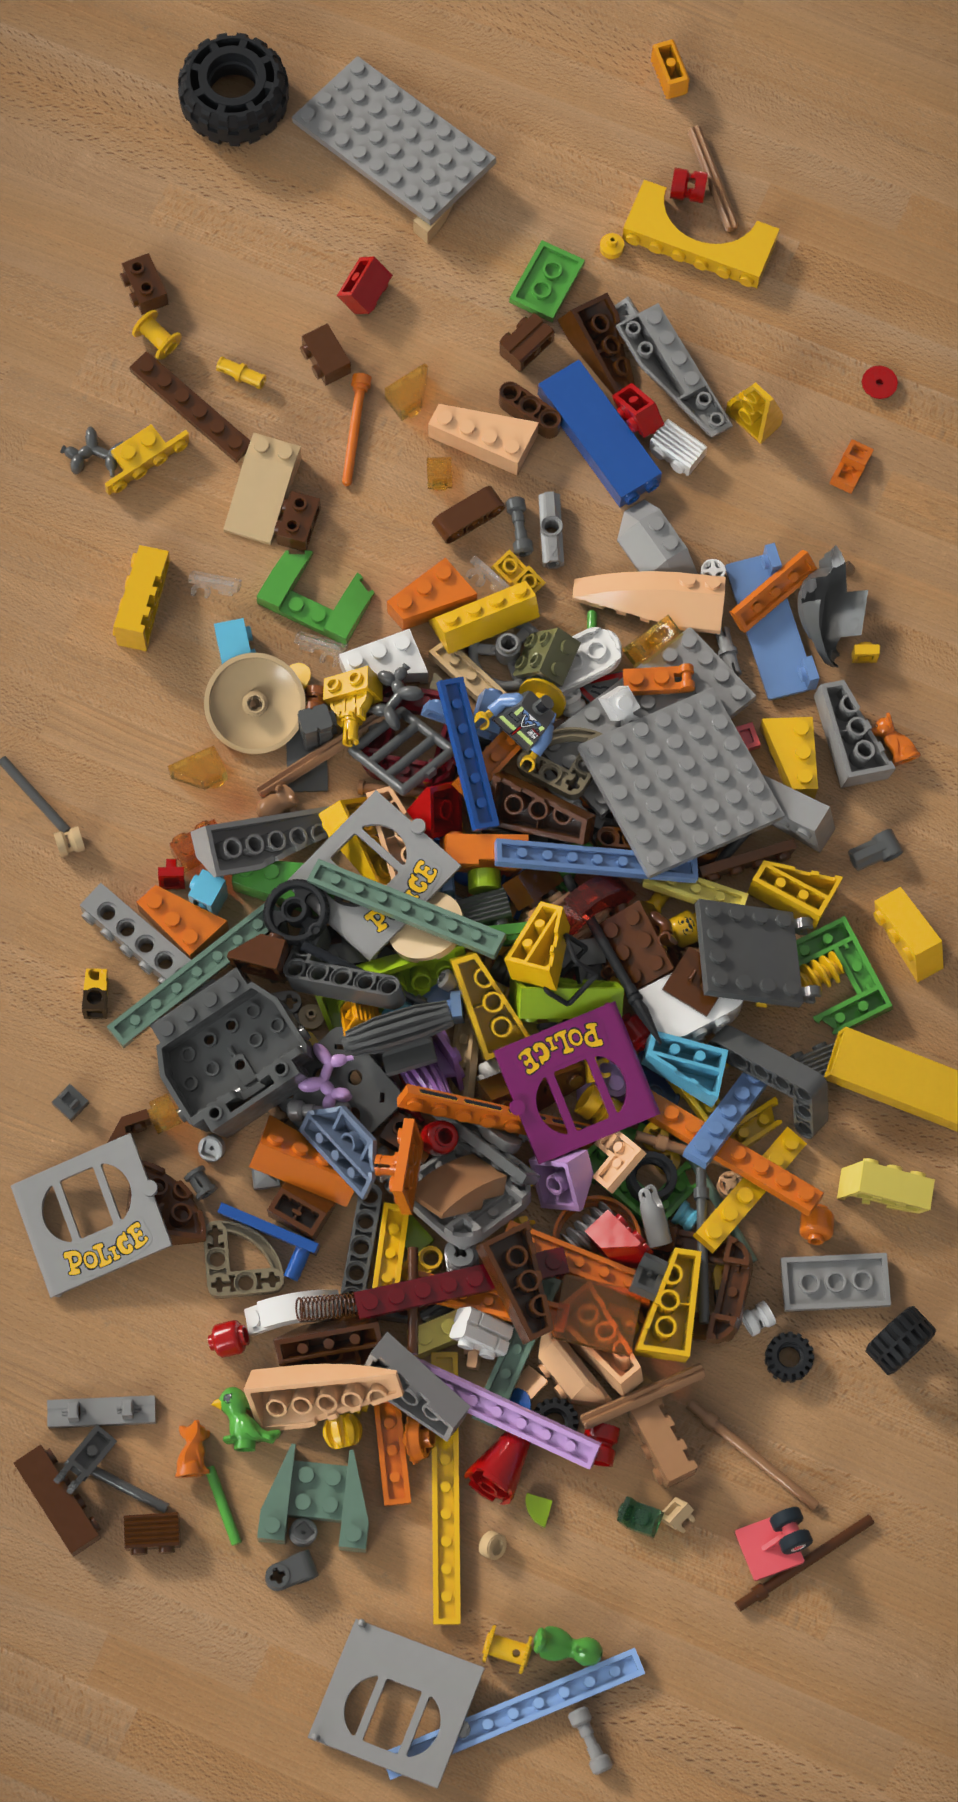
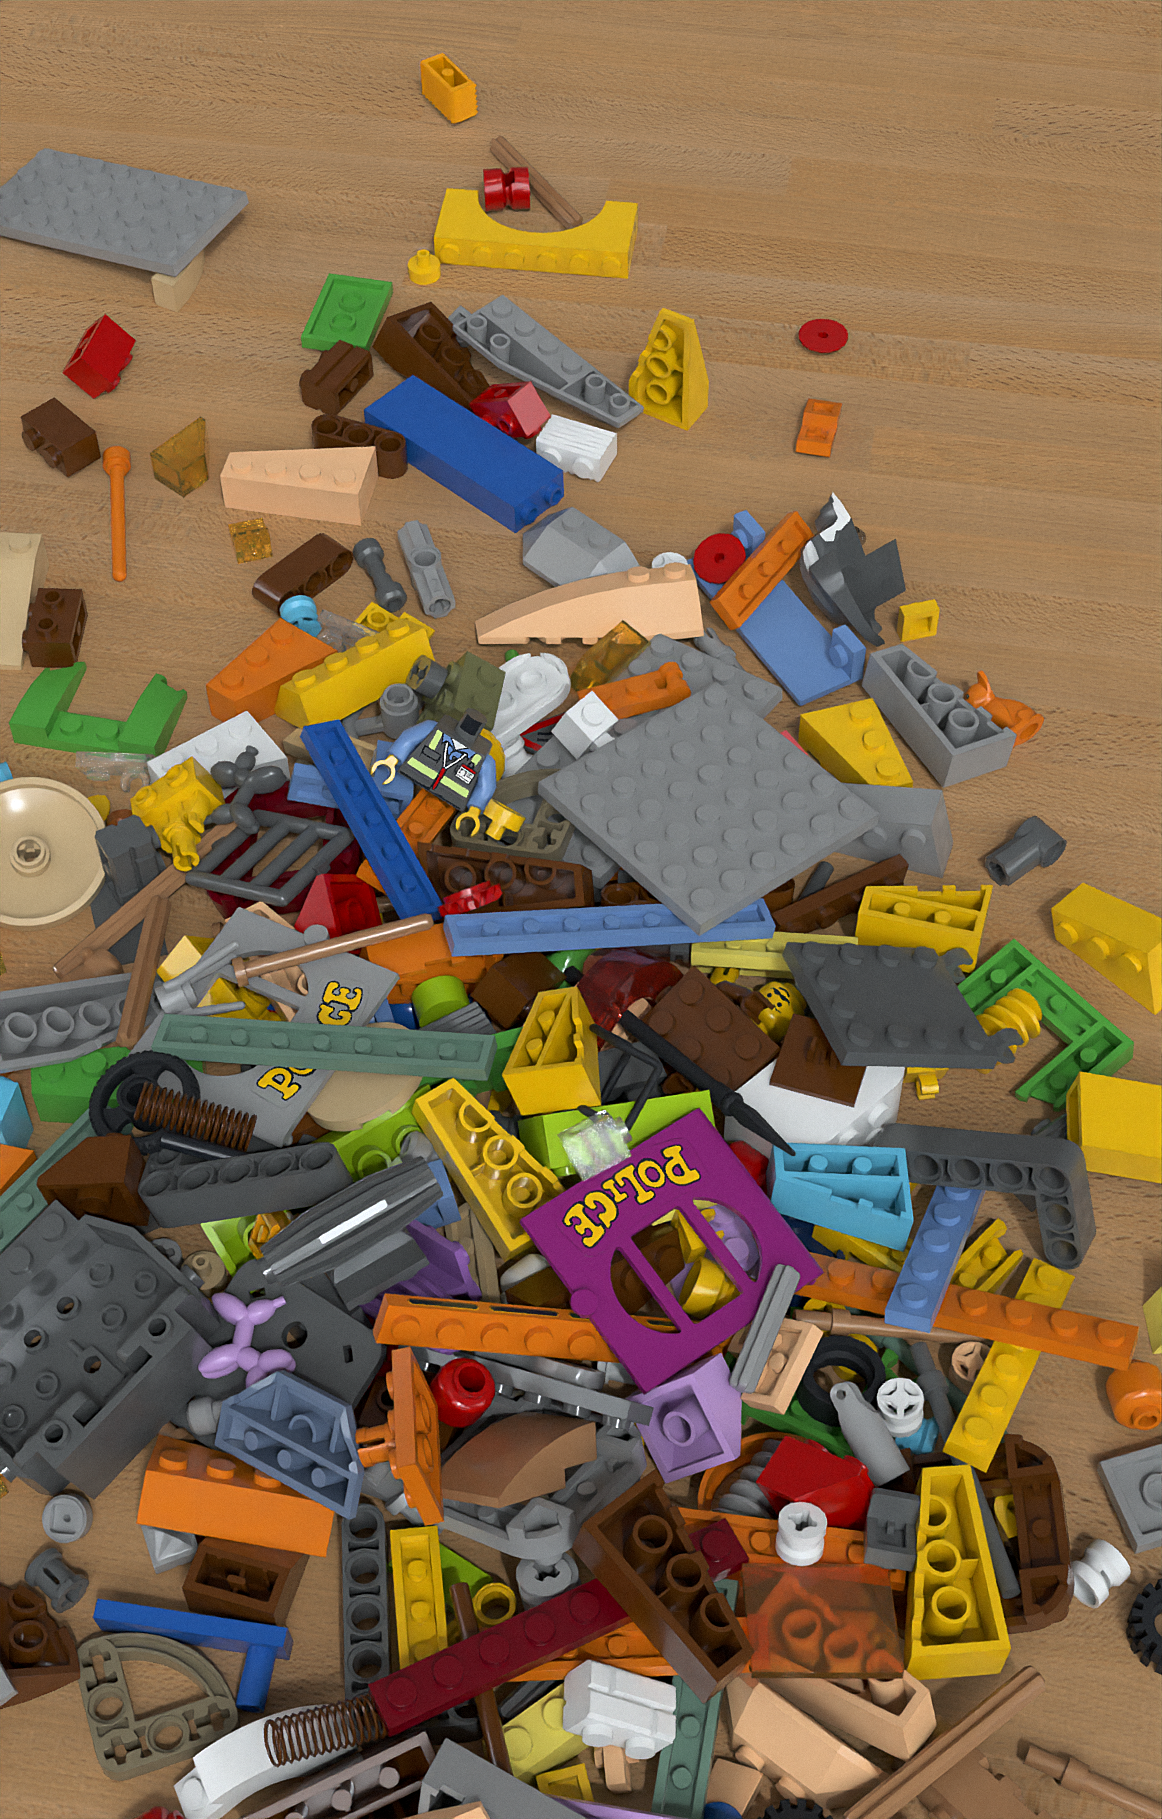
camera: 10 degrees left, 20 degrees down
(311, 813) = (143, 973): none -> medium nougat axle
(329, 845) = (178, 993): none -> light grey plant
(355, 943) = (247, 1129): none -> reddish brown piece
(424, 837) = (329, 947): none -> medium nougat bar
(459, 552) = (301, 613): none -> medium azure wheel
(514, 826) = (470, 898): none -> red gear
(529, 633) = (426, 676): none -> dark grey beam
(547, 1014) = (596, 1144): none -> clear brick
(550, 765) = (502, 818): none -> yellow tile
(601, 1272) = (801, 1533): none -> white wheel
(615, 1142) = (764, 1329): none -> light grey axle
(678, 1197) = (901, 1395): none -> white wheel
(747, 572) = (719, 557): none -> red piece

